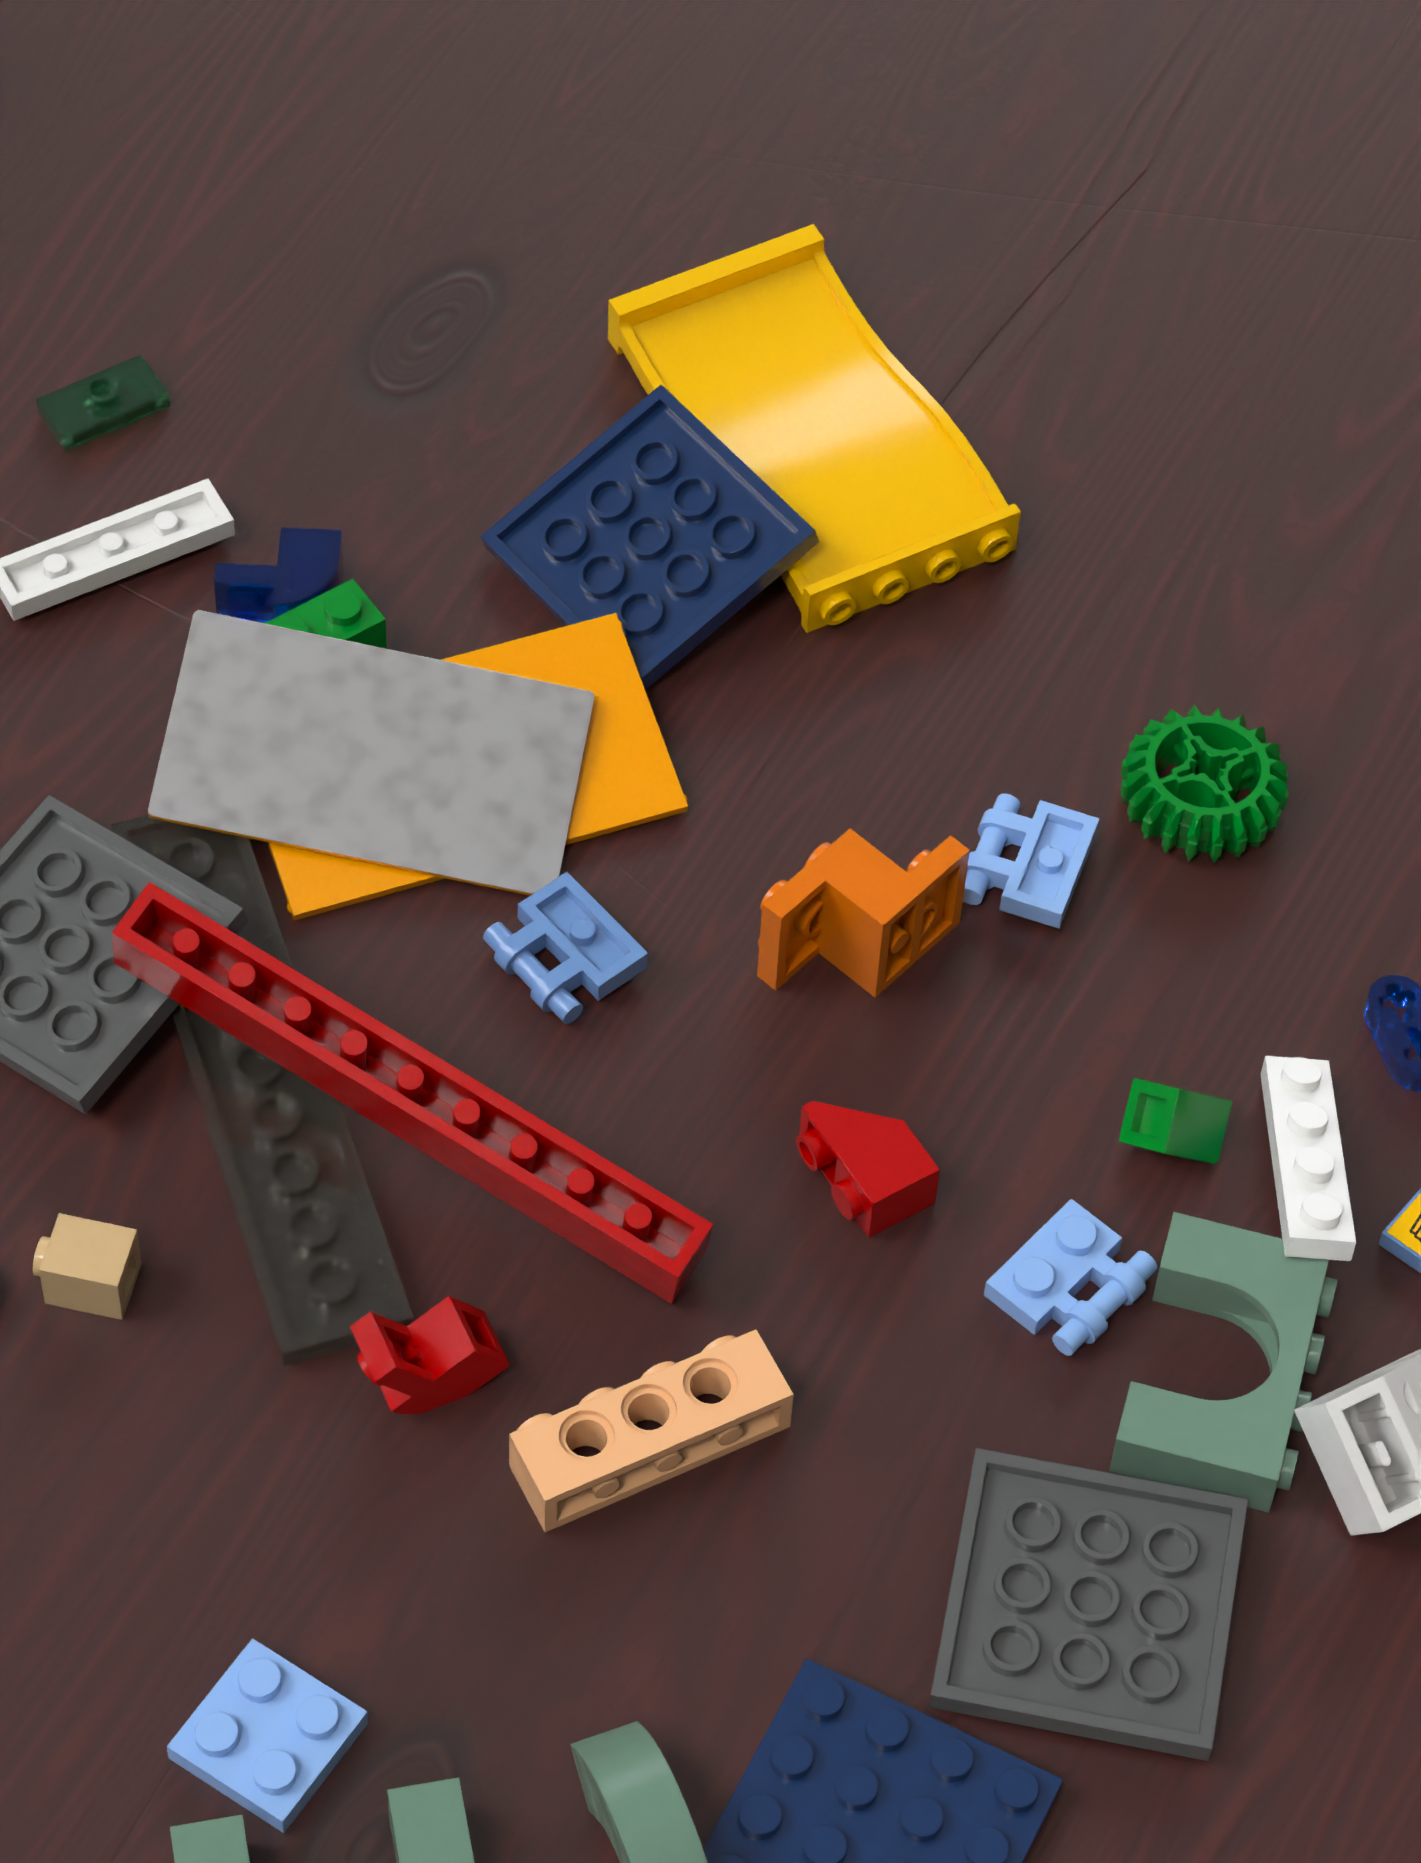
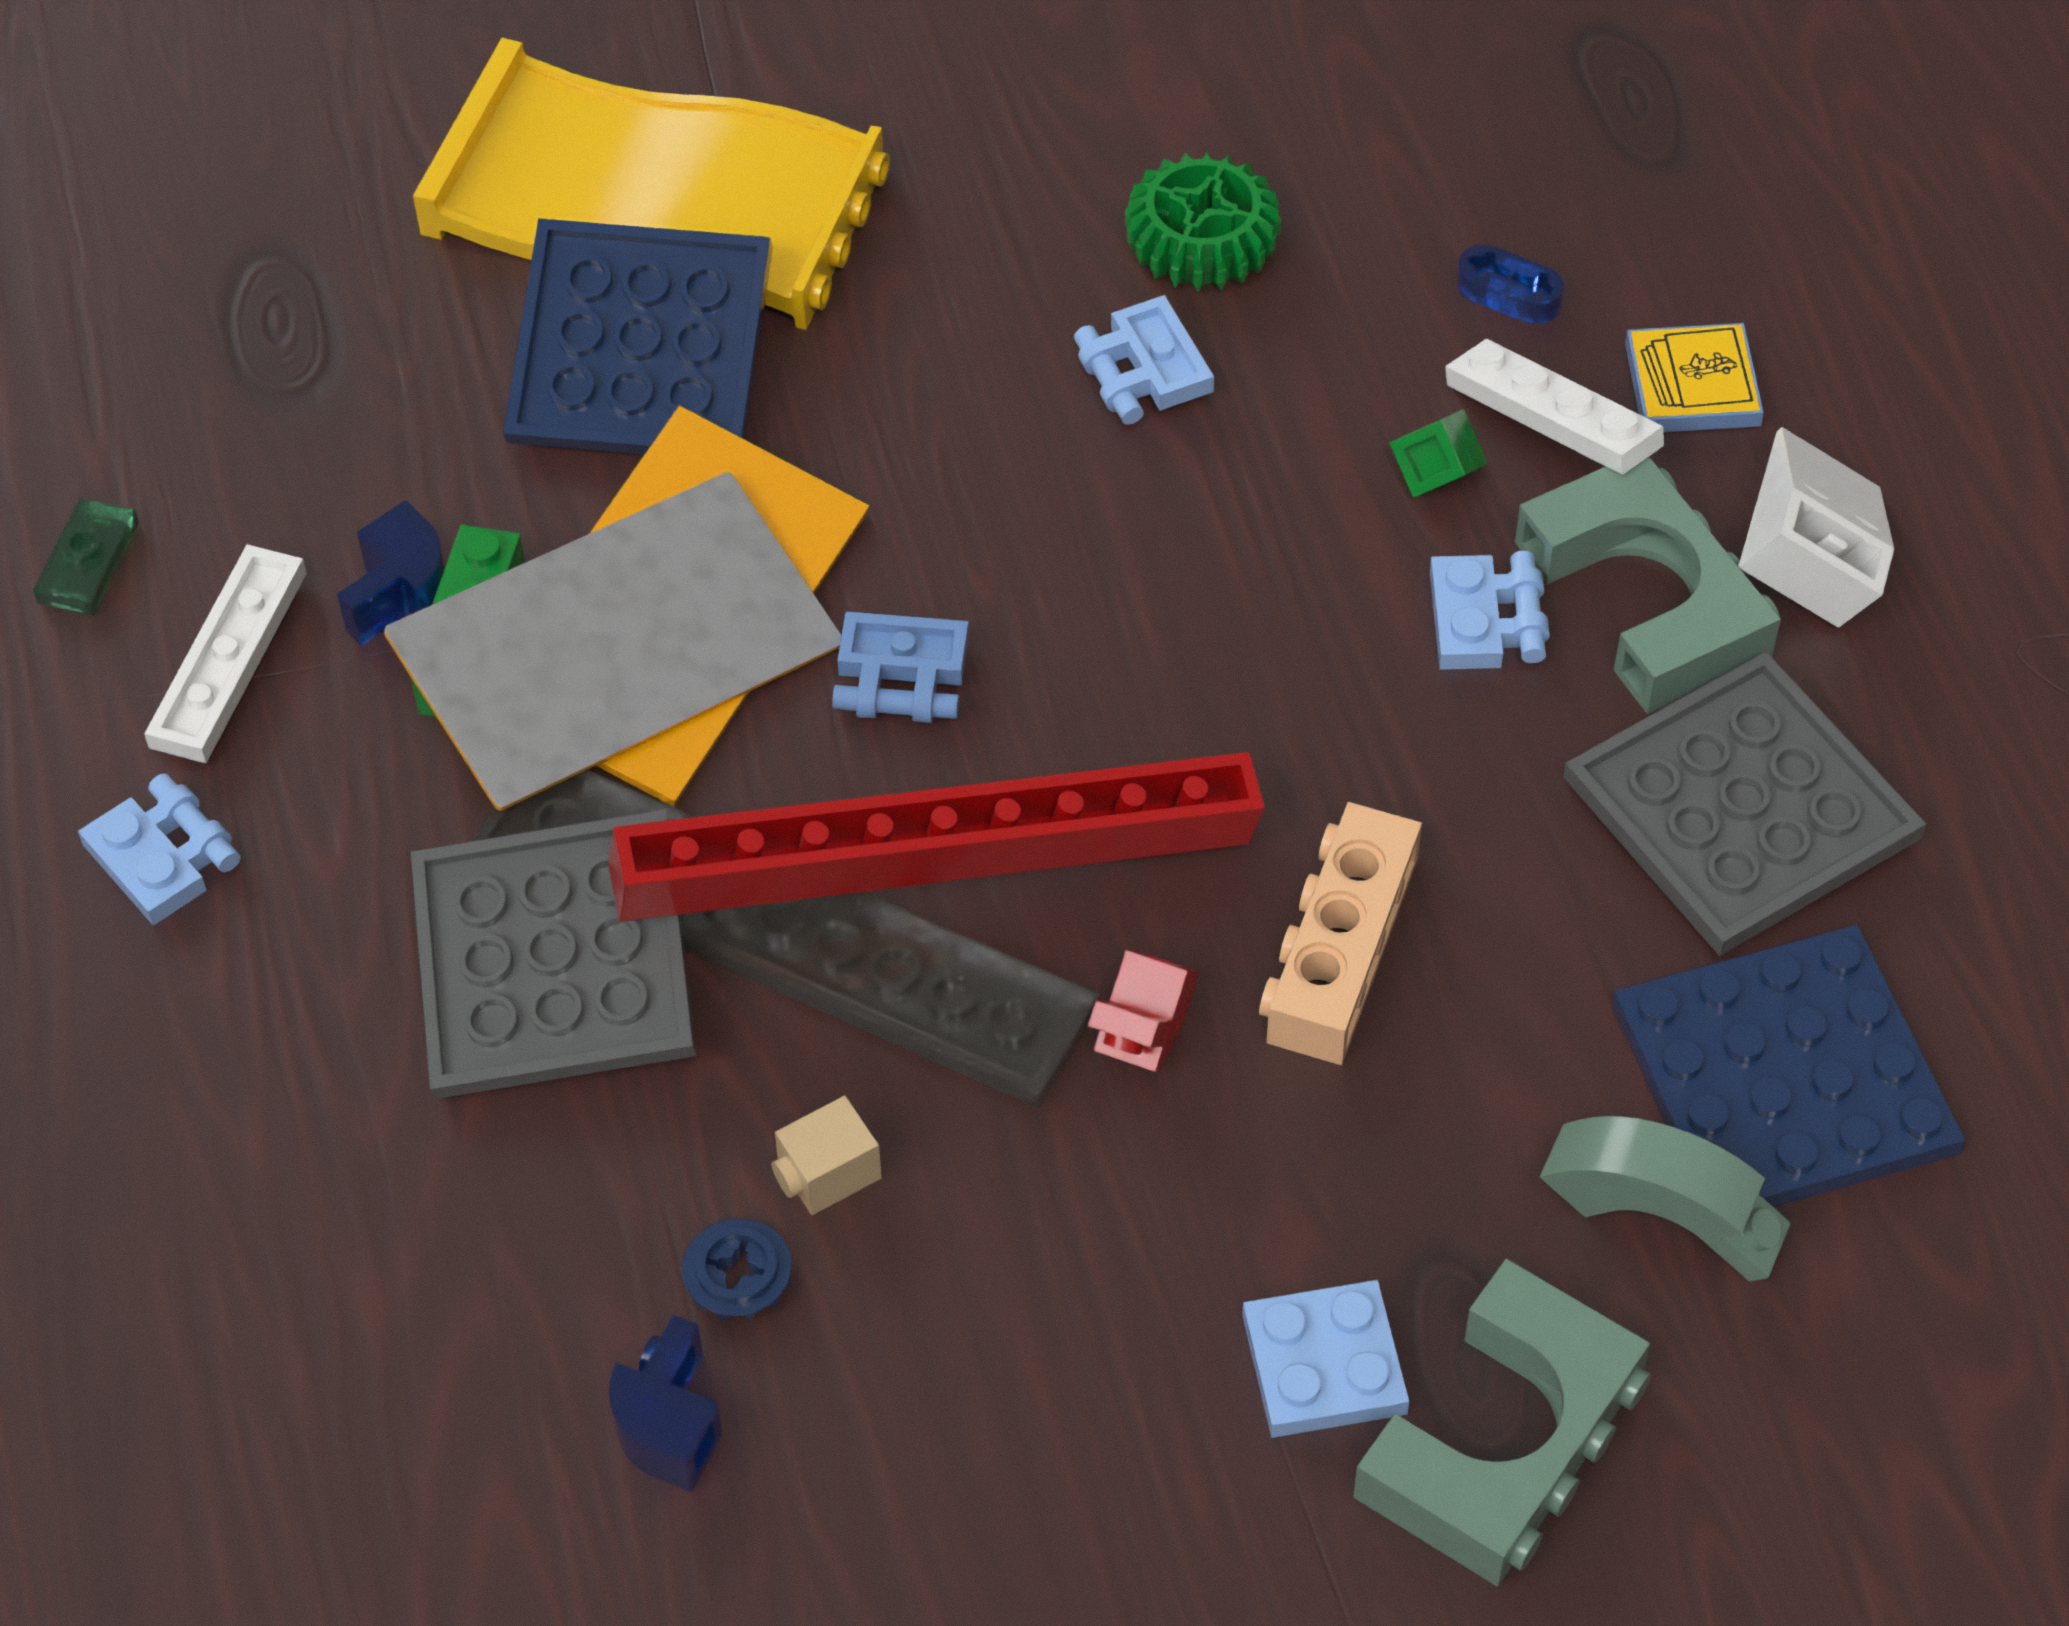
camera: 40 degrees left, 0 degrees up
(861, 911) = (1089, 474): orange bracket -> none
(871, 1163) = (1276, 640): red slope -> none

